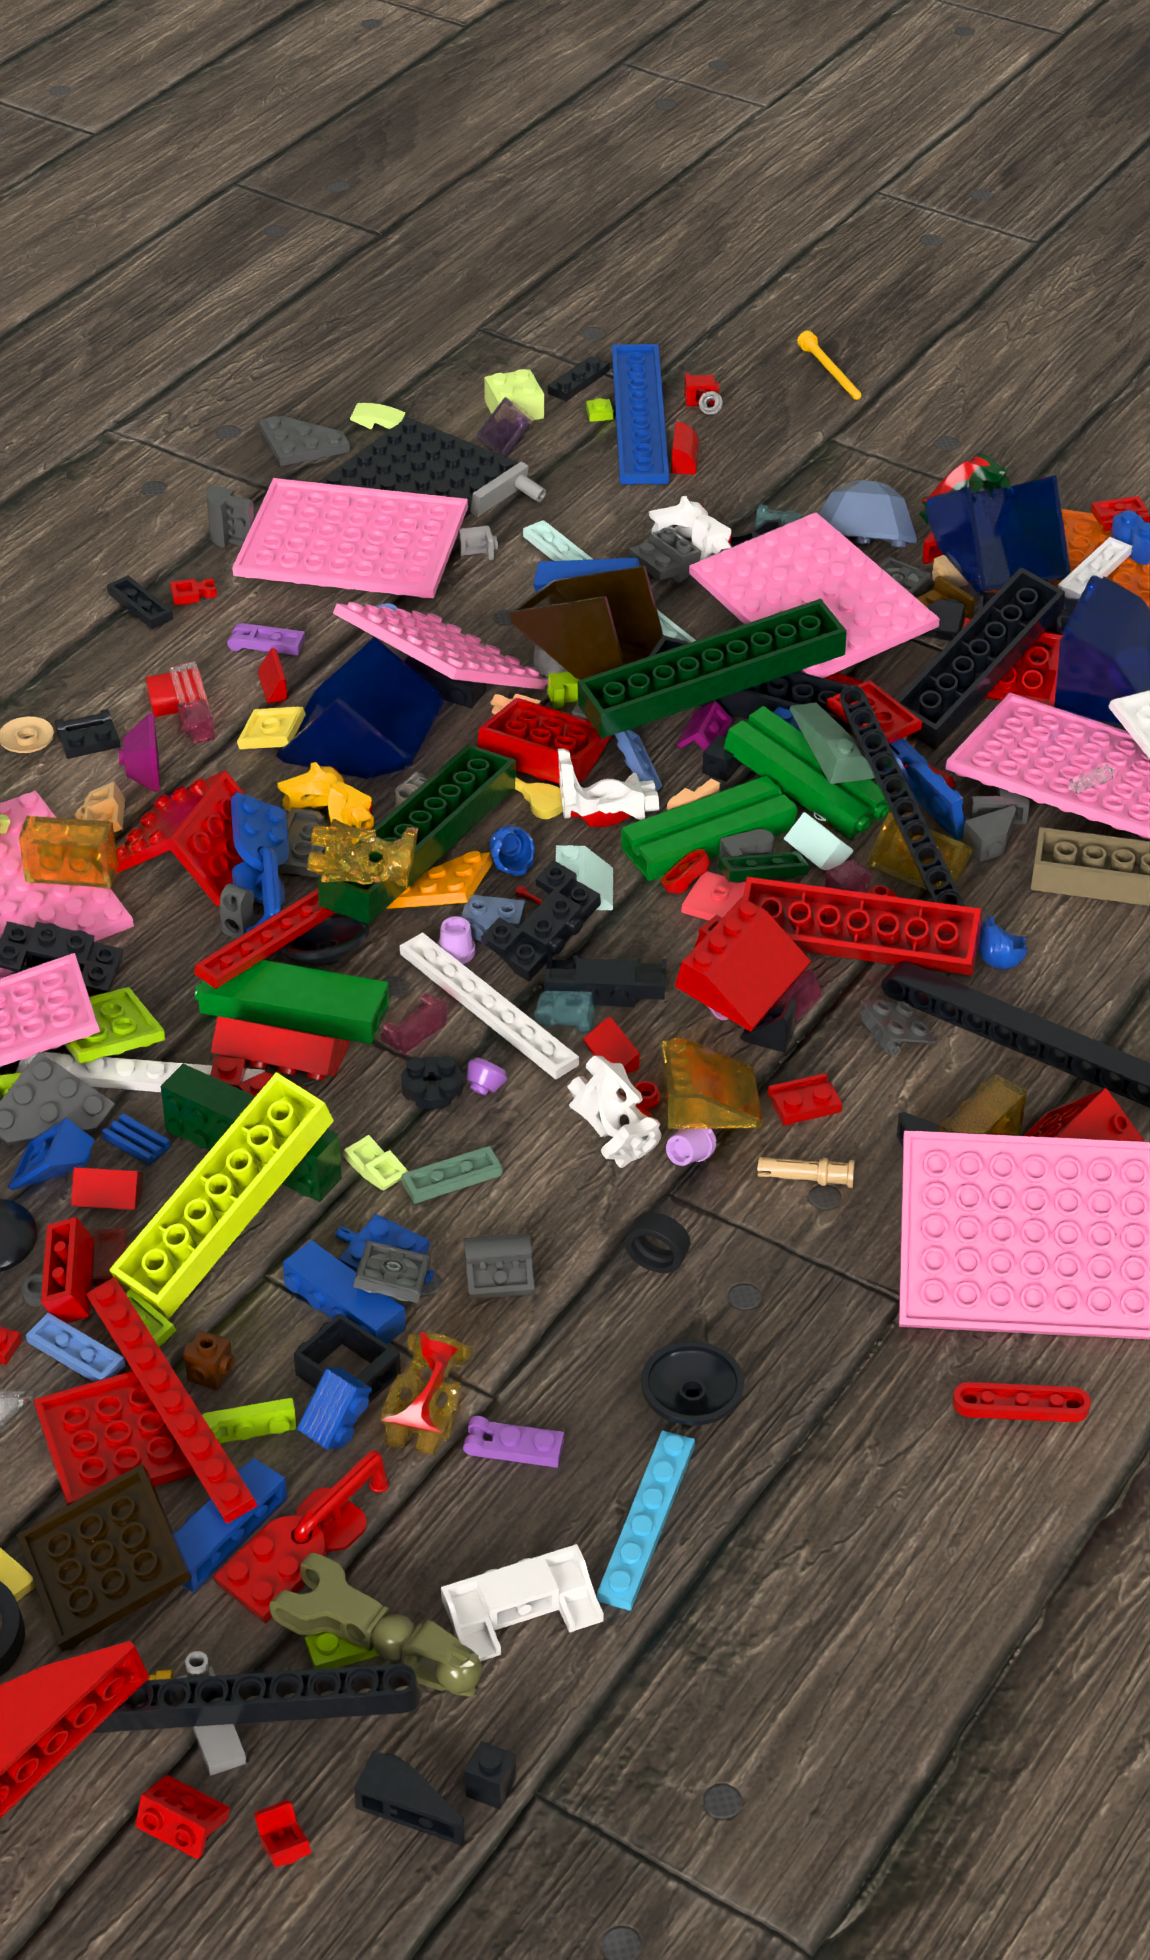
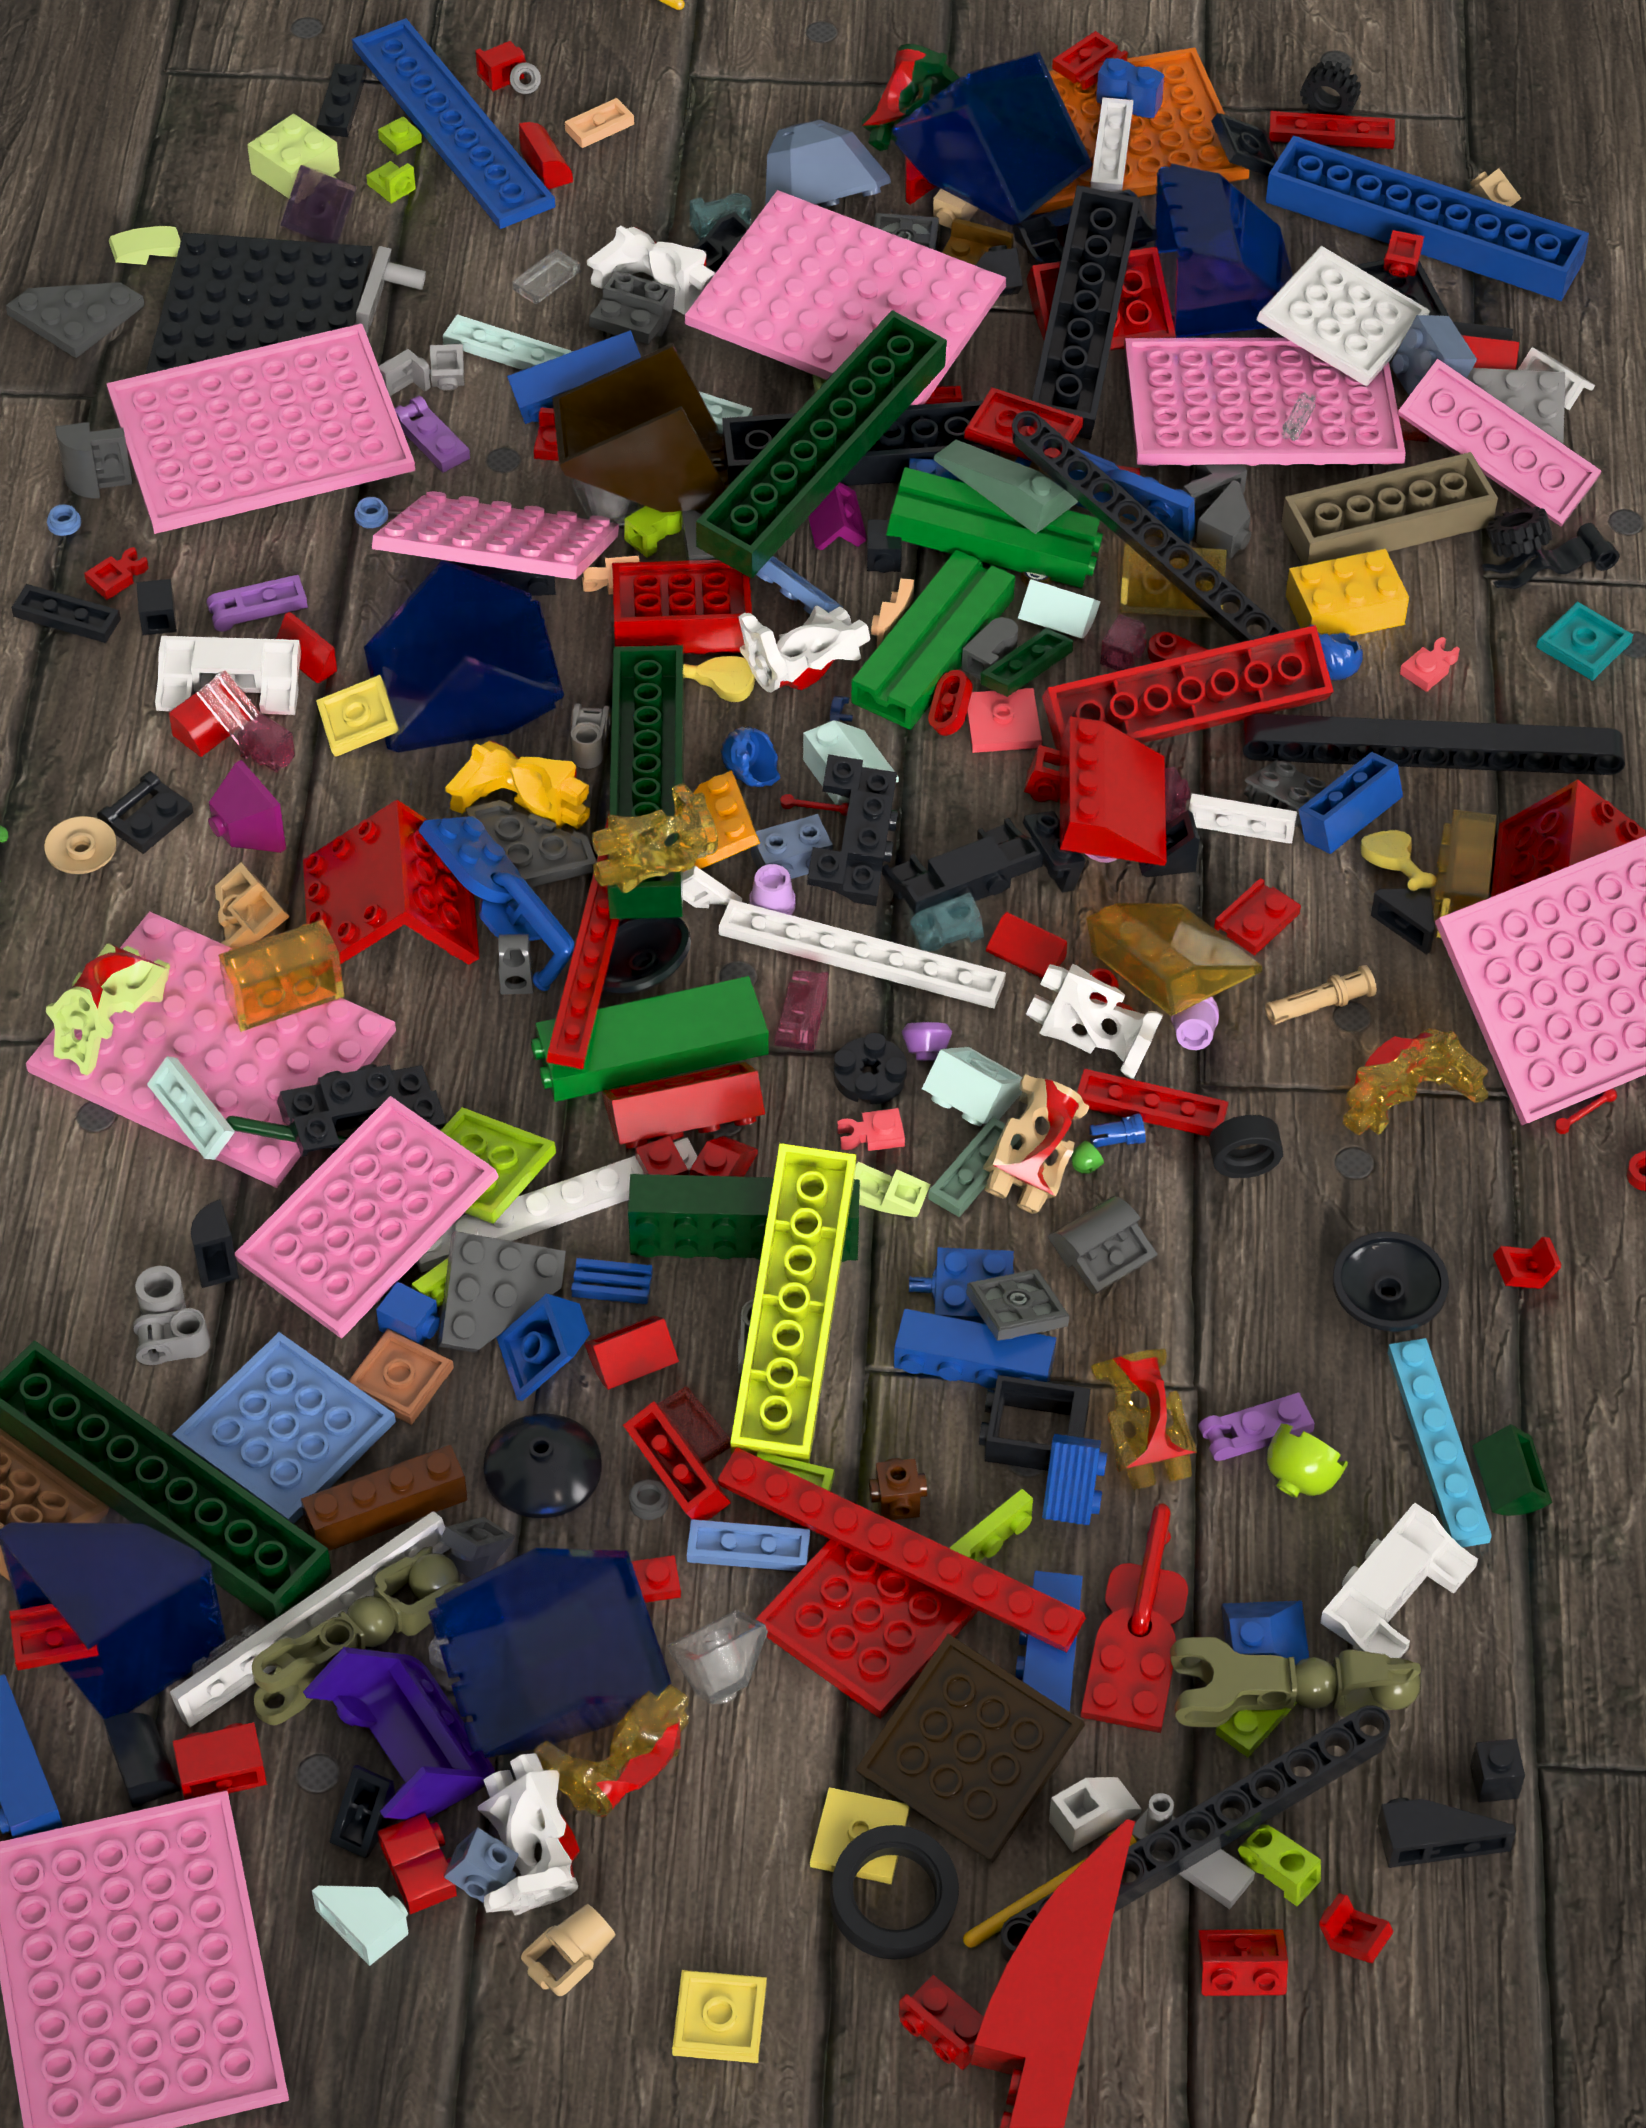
camera: 30 degrees left, 10 degrees up
(160, 1642) = (1091, 1810): none -> white slope
(186, 550) = (63, 520): none -> medium blue plate
(198, 618) = (156, 607): none -> black brick
(219, 669) = (253, 664): none -> white bracket
(270, 1760) = (1282, 1862): none -> lime leg
(398, 1586) = (1266, 1628): none -> blue slope
(403, 1123) = (878, 1130): none -> coral plate
(408, 919) = (702, 889): none -> white tile
(468, 584) = (431, 435): none -> medium lavender plate
(484, 1184) = (1027, 1165): none -> tan hips
(494, 1119) = (972, 1084): none -> light aqua slope
(511, 548) = (447, 366): none -> light grey bracket
(519, 1480) = (1303, 1463): none -> lime cylinder
(536, 1204) = (1086, 1158): none -> bright green hinge
(570, 433) = (392, 181): none -> lime bracket
(583, 1198) = (1128, 1131): none -> blue pin
(604, 847) = (837, 707): none -> dark blue piece
(612, 1183) = (1154, 1102): none -> red plate
(626, 521) = (546, 276): none -> clear tile
(679, 1002) = (1061, 864): none -> black bracket
(685, 1565) = (1512, 1472): none -> dark green brick
(739, 444) = (599, 123): none -> light nougat plate
(797, 1248) = (1399, 1067): none -> clear yellow hips
(816, 1423) = (1528, 1266): none -> red bracket
(843, 1028) = (1243, 818): none -> white tile
(932, 1048) = (1351, 802): none -> blue brick
(932, 1340) = (1563, 1125): none -> red hinge
(940, 1095) = (1393, 852): none -> light yellow piece
(1046, 913) = (1348, 594): none -> yellow brick
(1077, 987) = (1428, 667): none -> coral plate

